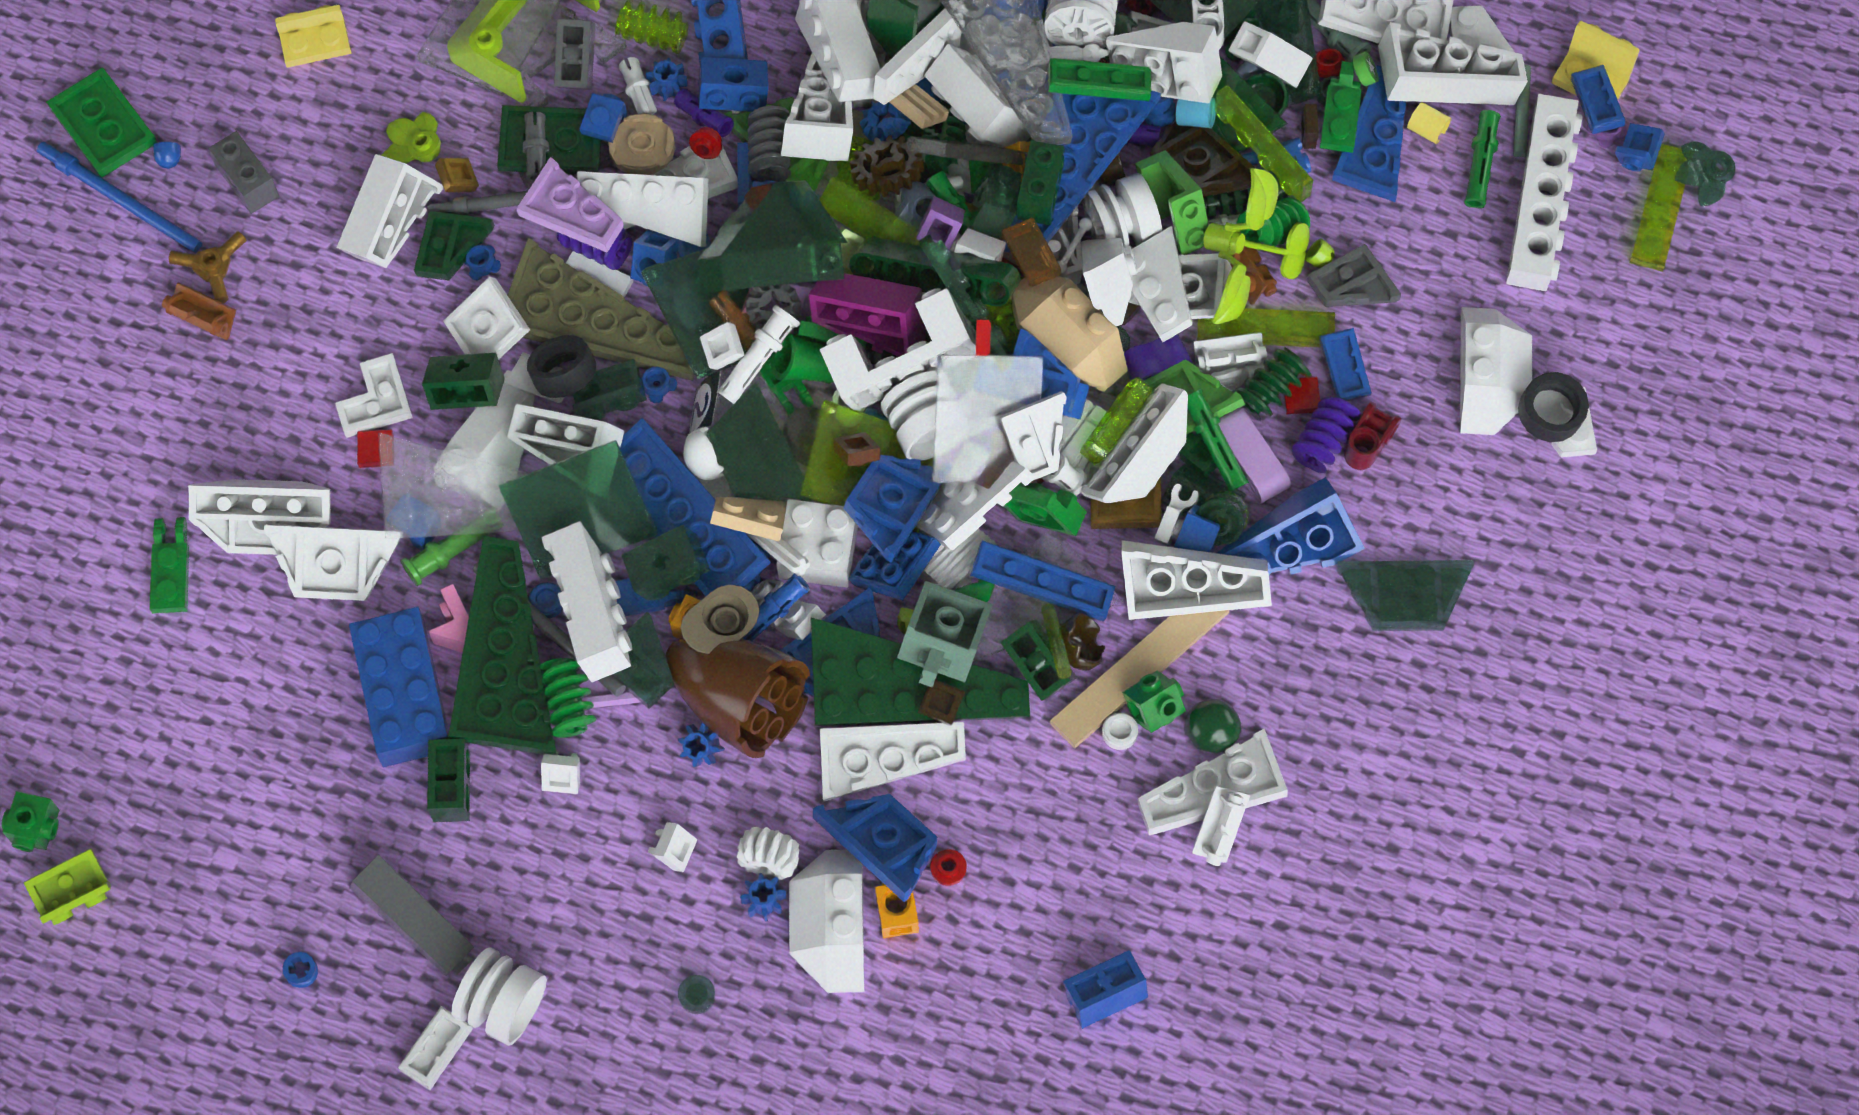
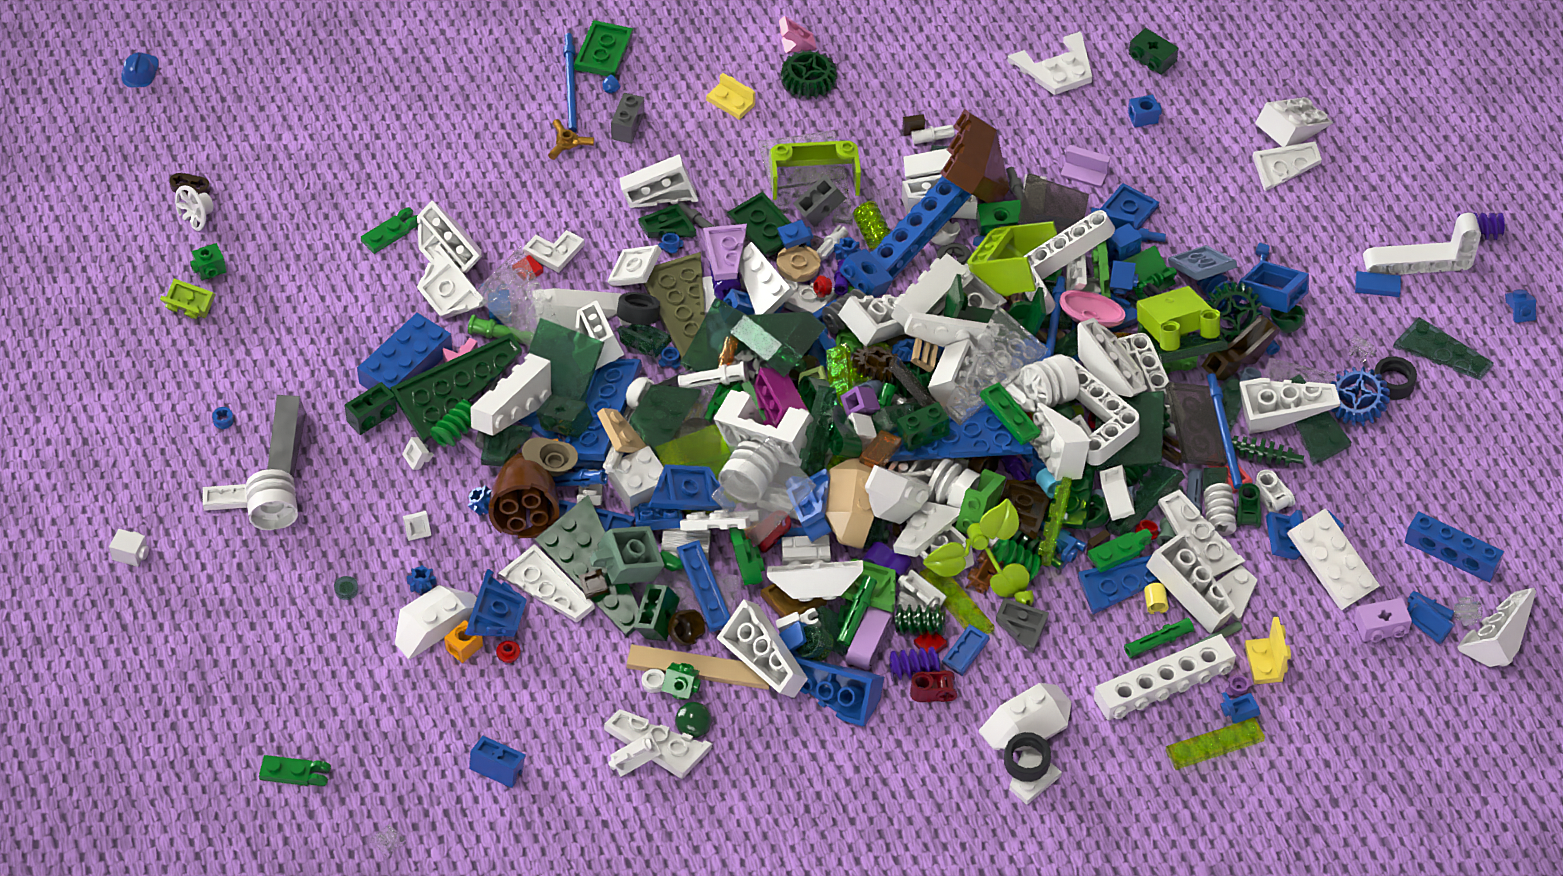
camera: 50 degrees right, 15 degrees down
(200, 310) = (536, 151): dark orange hinge -> none
(413, 139) = (712, 173): lime plate -> none
(456, 175) = (709, 202): pearl gold tile -> none
(463, 381) = (593, 275): dark green brick -> none
(535, 144) = (752, 216): dark grey pin -> none
(722, 346) = (704, 358): white tile -> none
(768, 853) = (445, 564): white gear -> none
(856, 449) = (701, 454): reddish brown plate -> none
(983, 335) = (798, 448): red tile -> none
(1036, 434) = (773, 518): white wing -> none
(1056, 641) = (670, 608): clear neon green bar -> none
(1067, 476) = (772, 554): white bush -> none
(1116, 420) = (825, 556): clear neon green beam -> none
(1365, 68) = (1154, 541): bright green tile -> none
(1406, 592) = (855, 763): clear green wing -> none
(1598, 99) = (1247, 666): blue plate -> none
(1702, 171) = (1253, 747): clear green plate -> none

